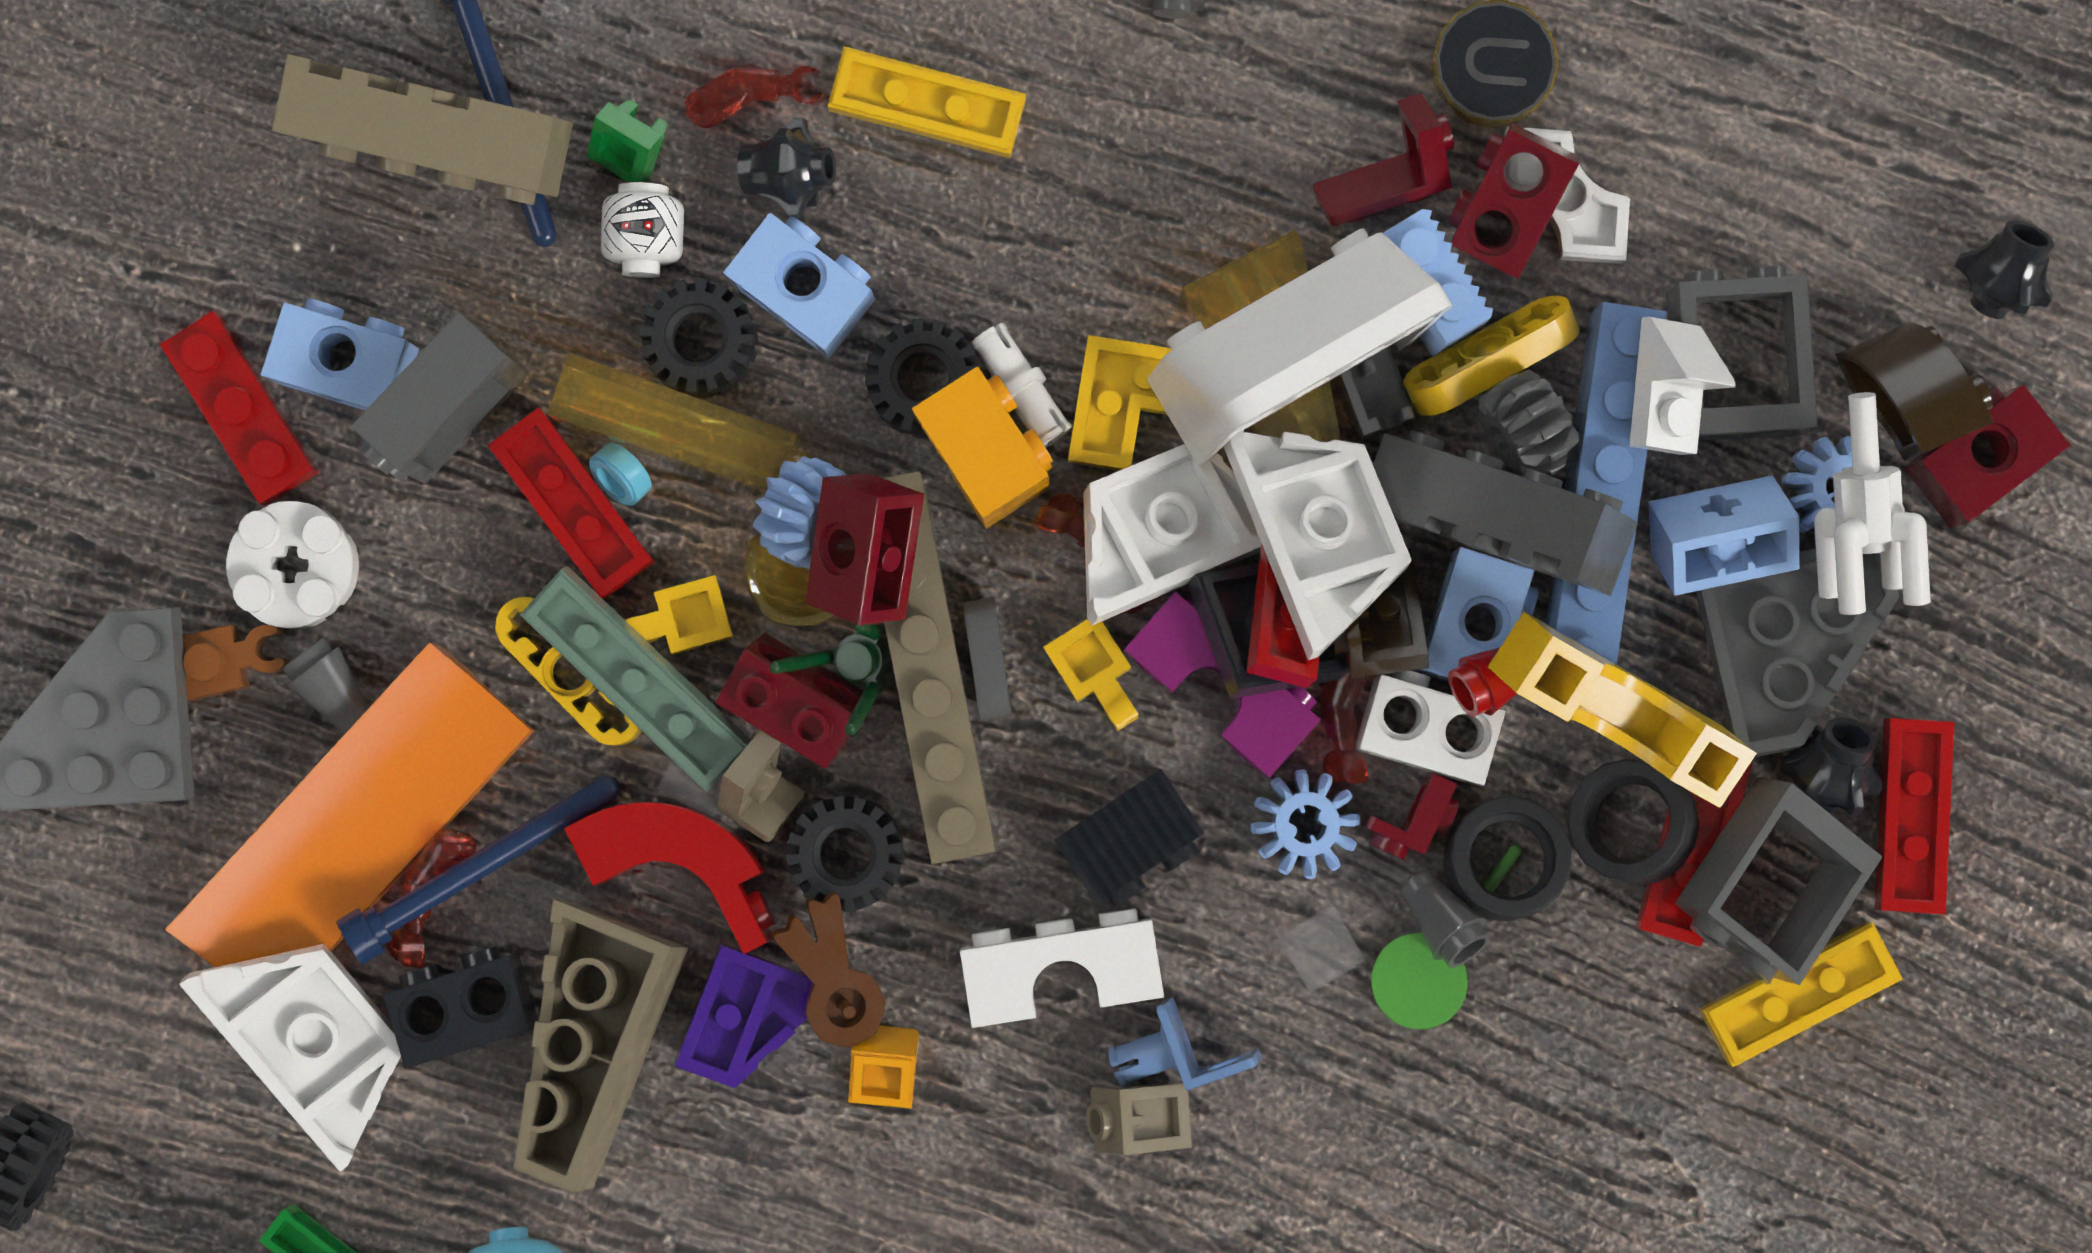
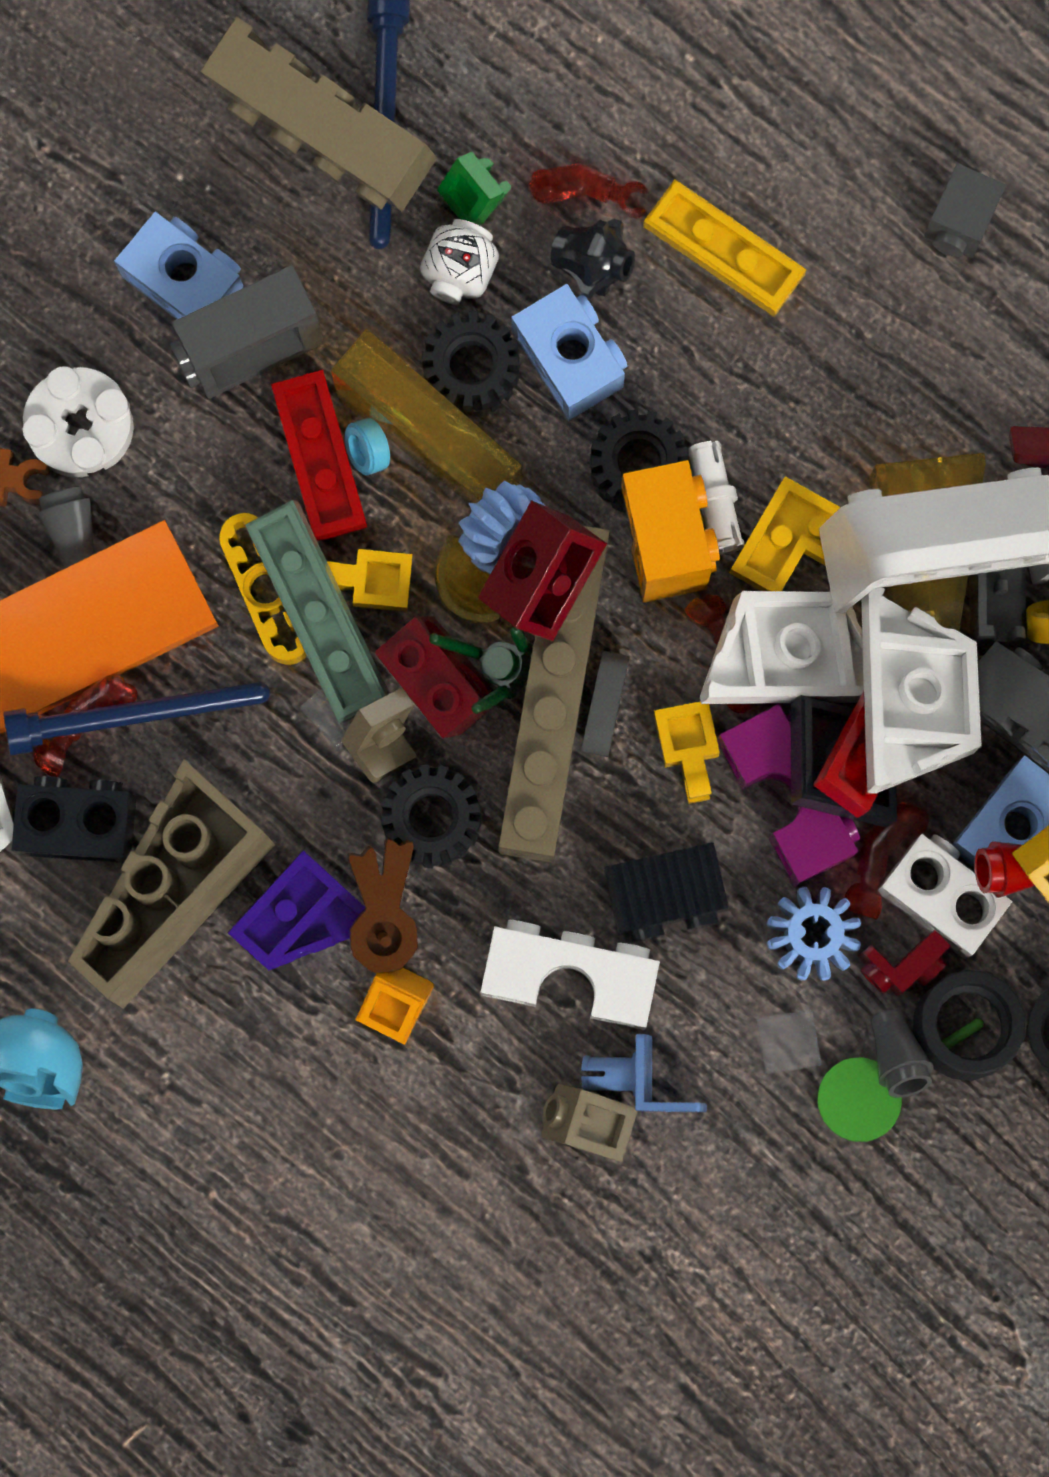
camera: 20 degrees right, 5 degrees down
(239, 408) = (85, 284): red plate -> none
(673, 833) = (281, 739): red arch -> none
(1388, 633) = (939, 800): dark brown bracket -> none

